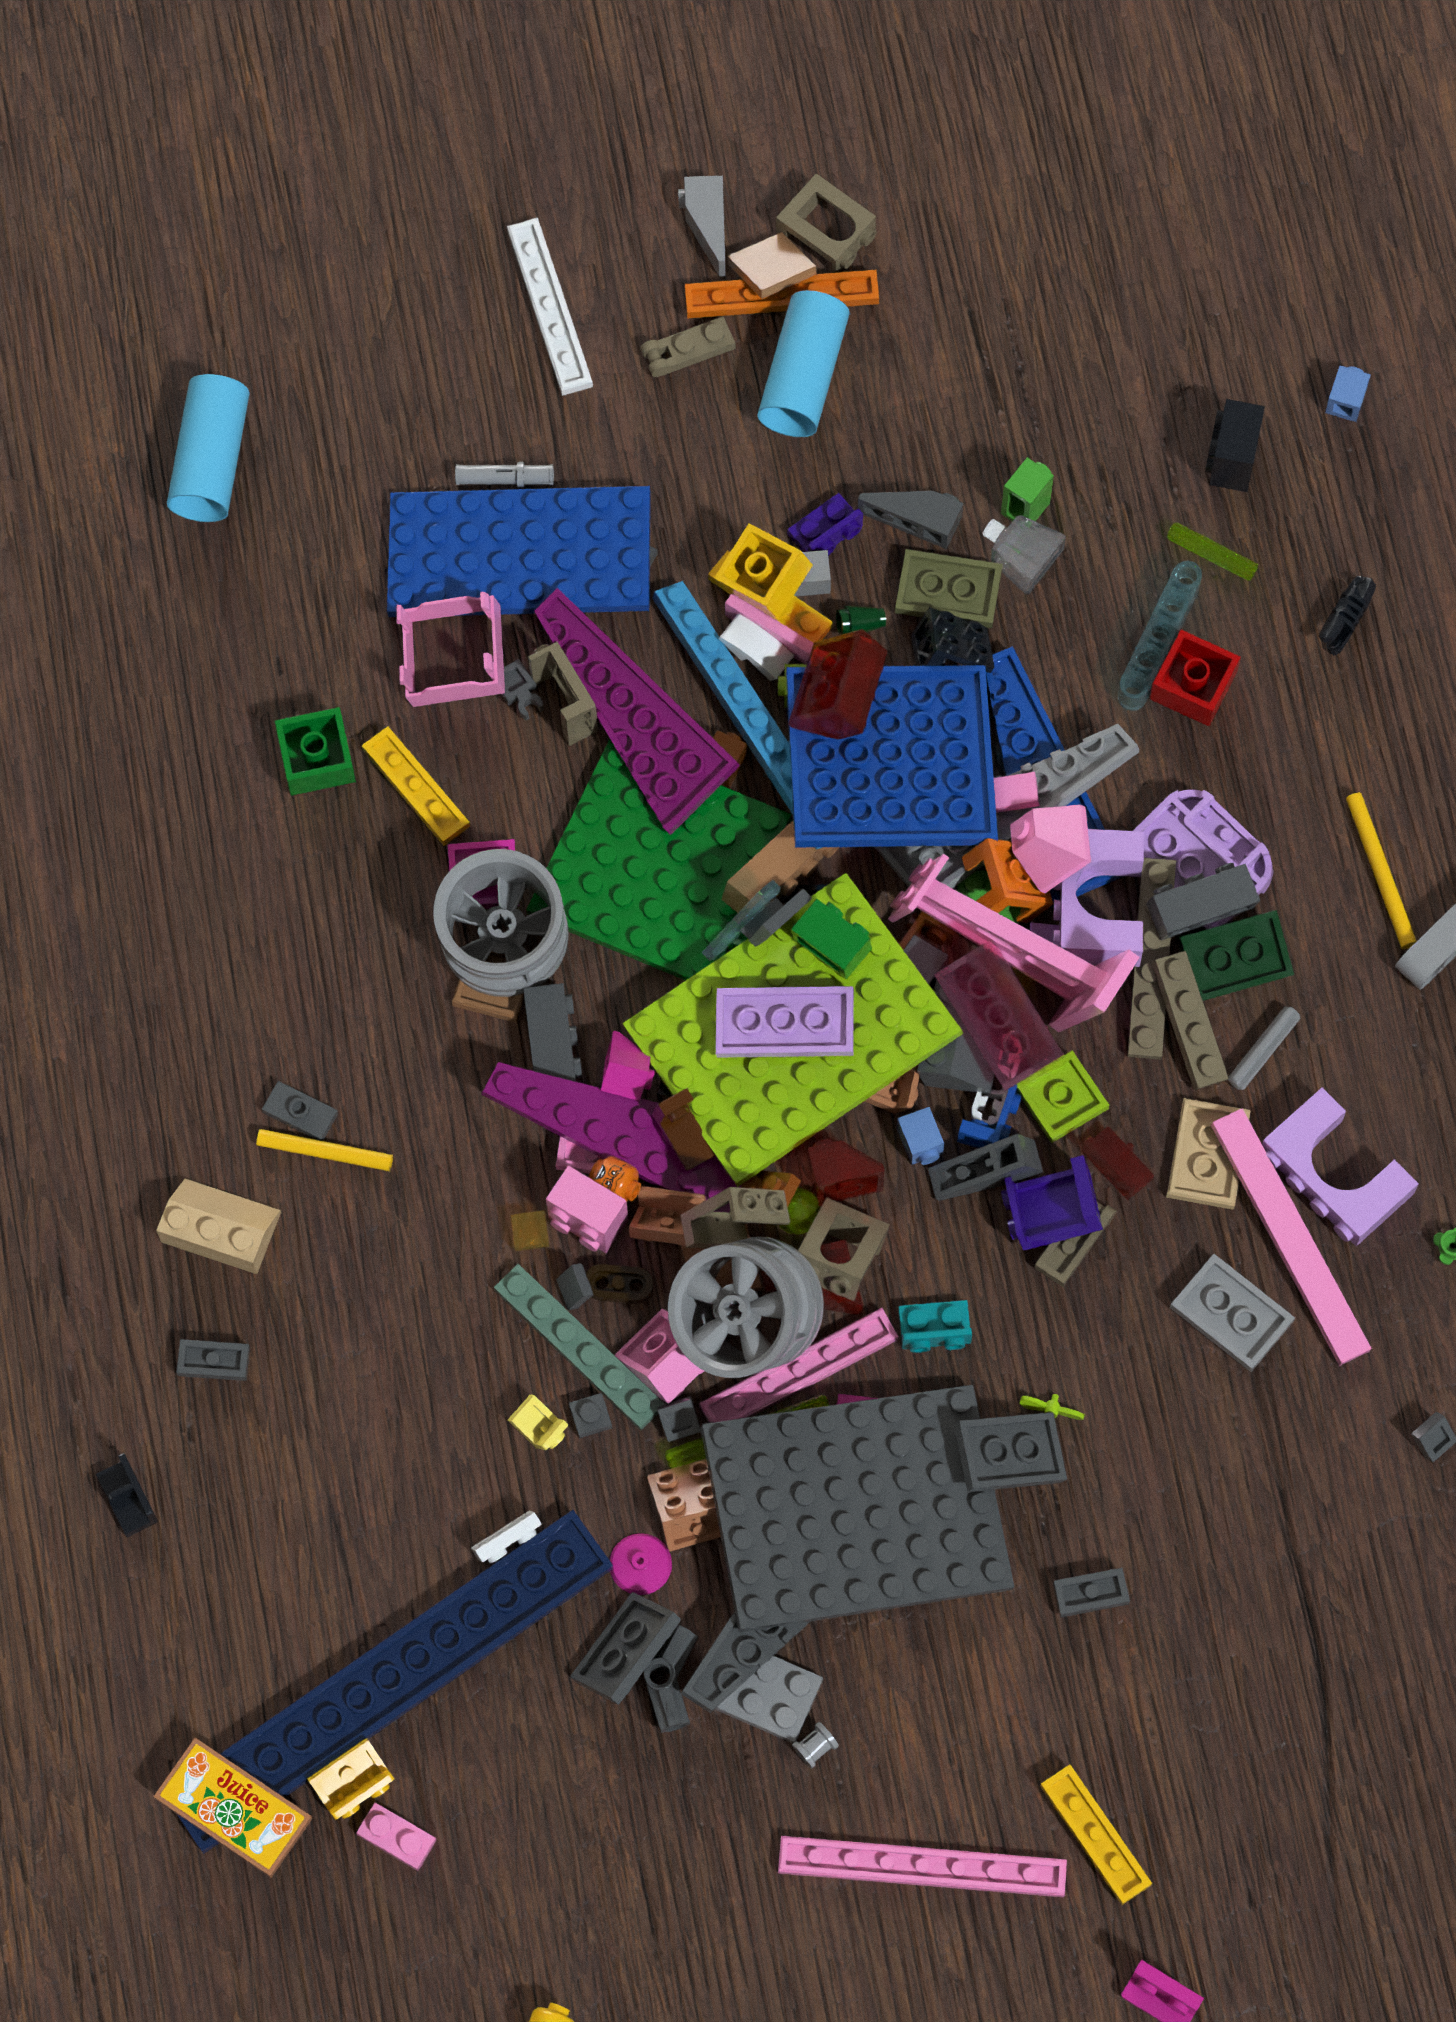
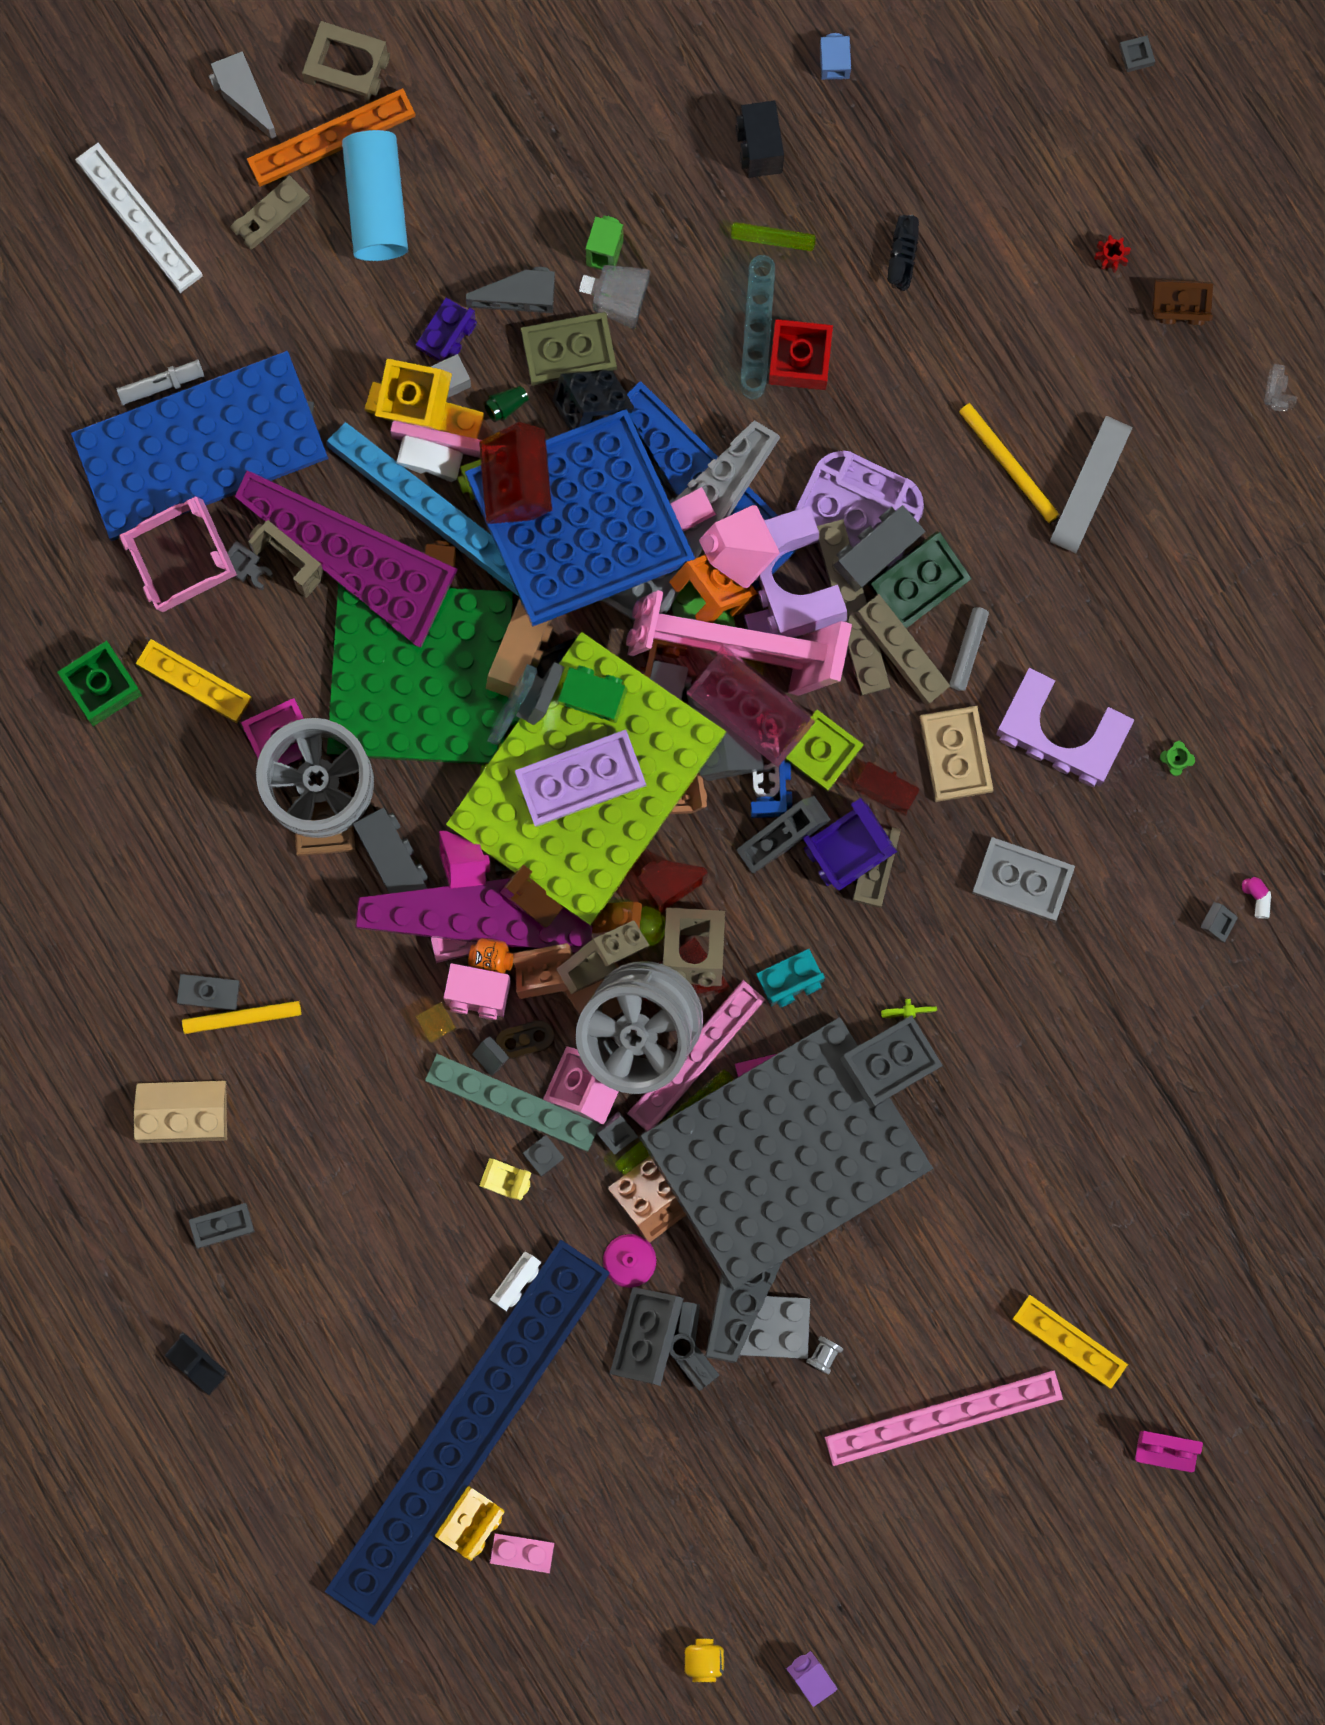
camera: 25 degrees left, 10 degrees up
(233, 1807) = (385, 1582): tile -> none
(771, 265) = (314, 115): tile -> none
(920, 1136) = (721, 827): medium blue brick -> none
(1091, 1592) = (995, 1150): dark grey plate -> none
(1291, 1237) = (1047, 799): bright pink tile -> none

